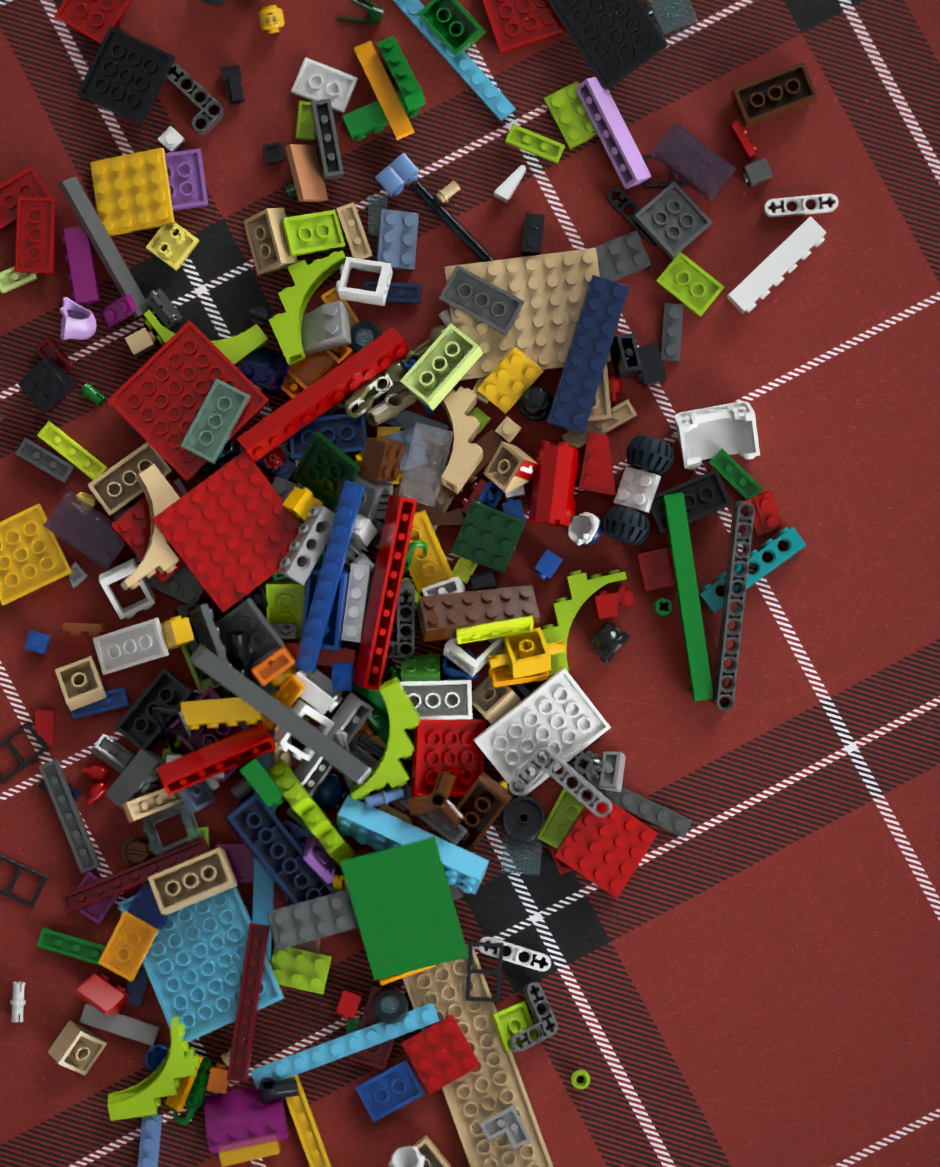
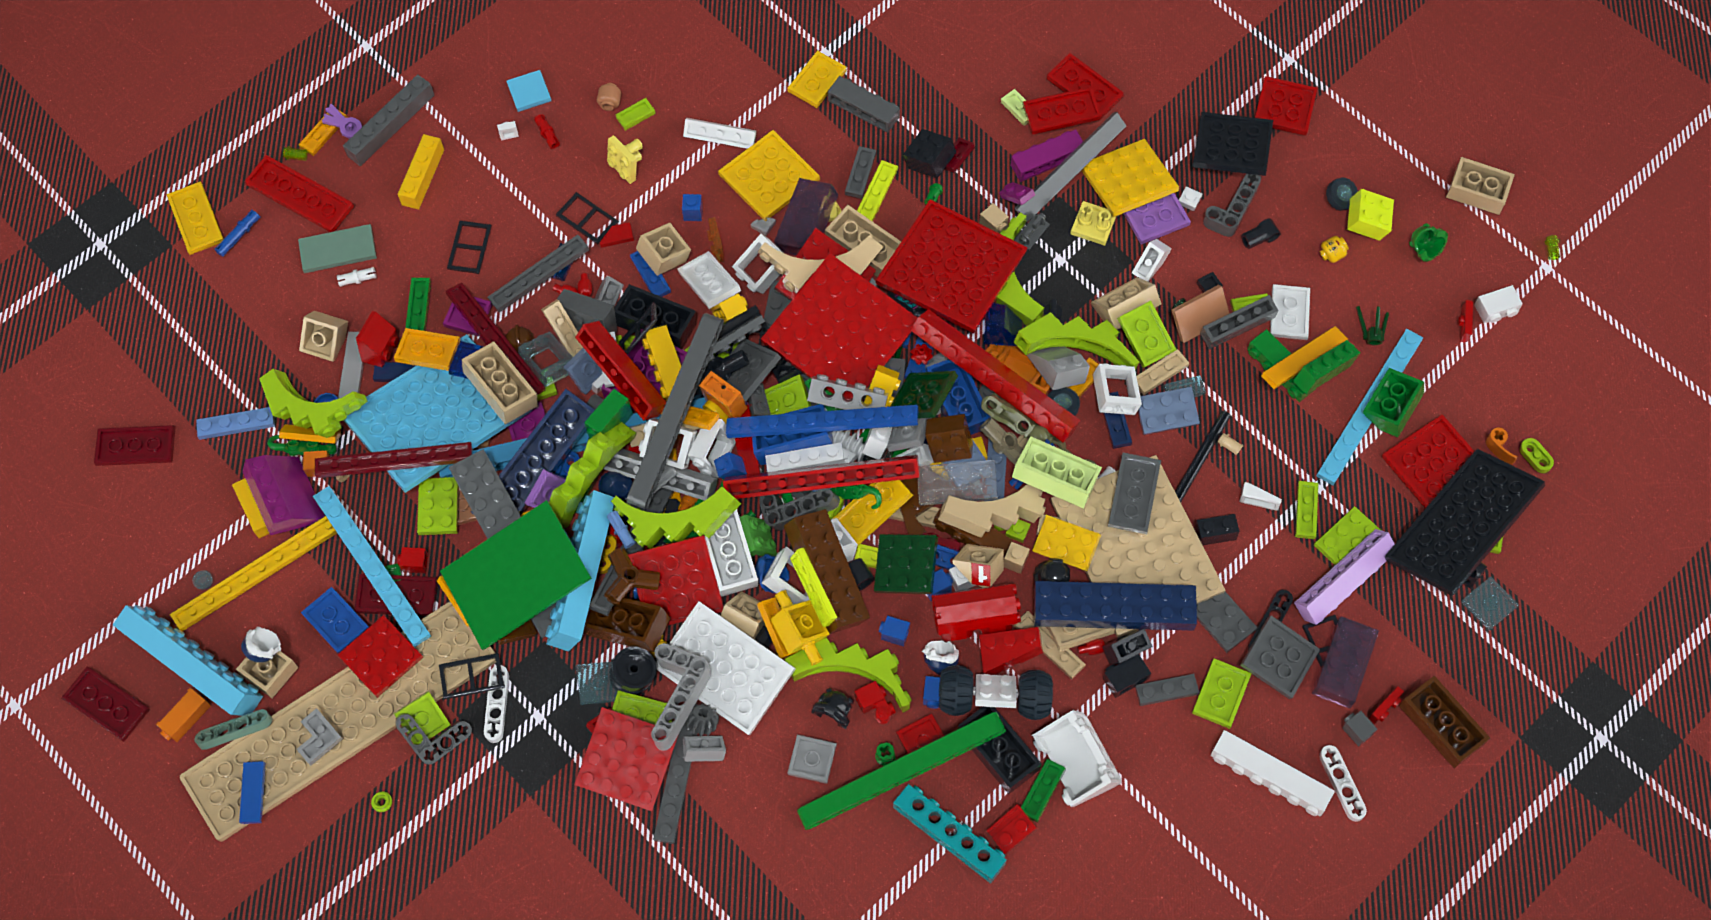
camera: 75 degrees right, 20 degrees down
(76, 321) = (994, 165): lavender piece -> none
(215, 421) = (939, 289): sand green tile -> none
(231, 200) = (1151, 260): none -> white slope
(271, 1089) = (313, 506): black piece -> none
(390, 1006) = (417, 595): black wheel -> none
(397, 175) = (1229, 394): medium blue brick -> none
(617, 548) = (931, 692): none -> blue brick
(649, 674) = (812, 759): none -> light grey plate
(729, 597) = (895, 817): dark grey beam -> none

